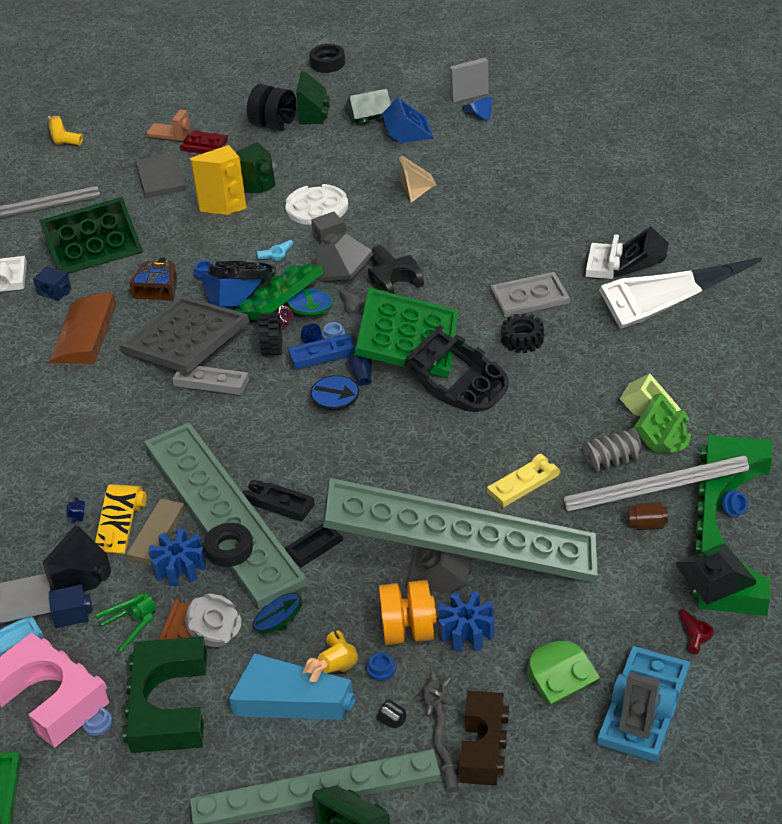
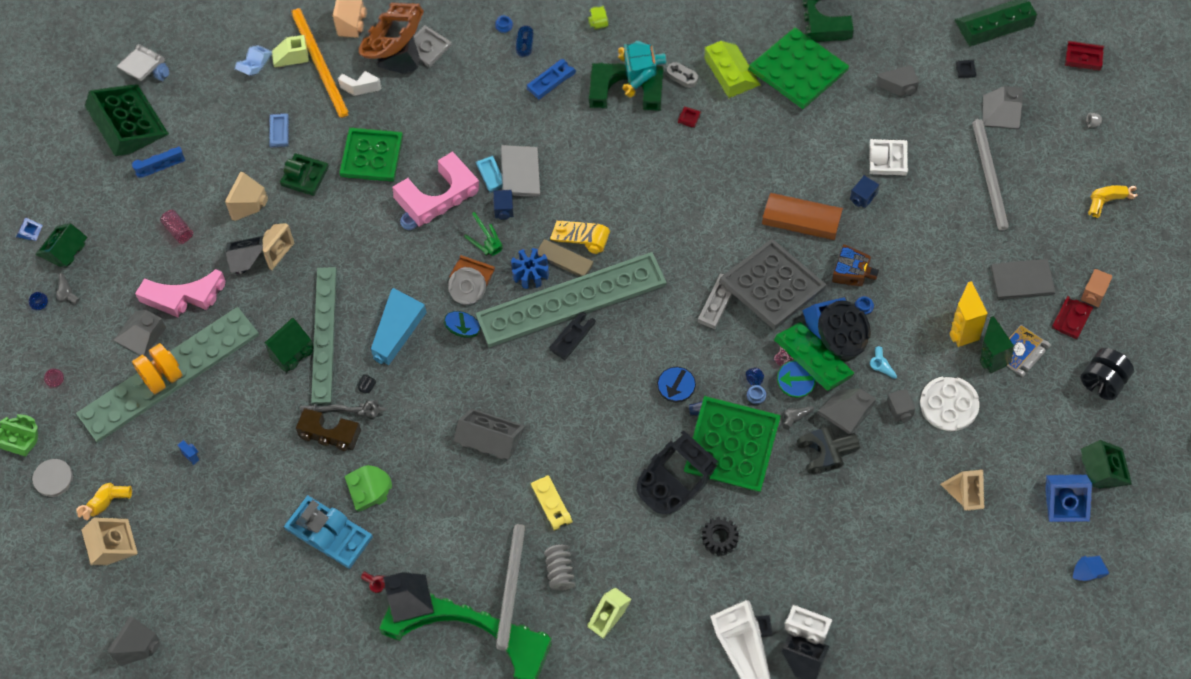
camera: 100 degrees right, 20 degrees up
(75, 510) = (594, 208): clear blue plate -> none
(77, 562) = (534, 206): black slope -> none
(90, 236) = (924, 220): dark green slope -> none
(157, 728) = (393, 245): dark green arch -> none
(231, 557) = (527, 286): black tyre -> none
(270, 334) = (752, 343): black tyre -> none
(311, 100) = (1118, 411): dark green slope -> none
(313, 545) = (525, 355): black tile -> none
(321, 351) = (733, 380): blue plate -> none
(339, 657) = (409, 355): yellow arm -> none
(381, 666) = (404, 382): blue plate -> none
(414, 611) = (432, 396): light orange wheel -> none
(460, 530) = (481, 435): sand green plate -> none
(466, 621) = (414, 434): blue gear -> none
(469, 80) = (1129, 562): light grey tile -> none
(529, 294) = (777, 556): light grey tile -> none
(647, 516) = (489, 577): reddish brown brick -> none
(663, 427) = (574, 611): bright green slope -> none
(734, 503) = (484, 641): blue plate -> none

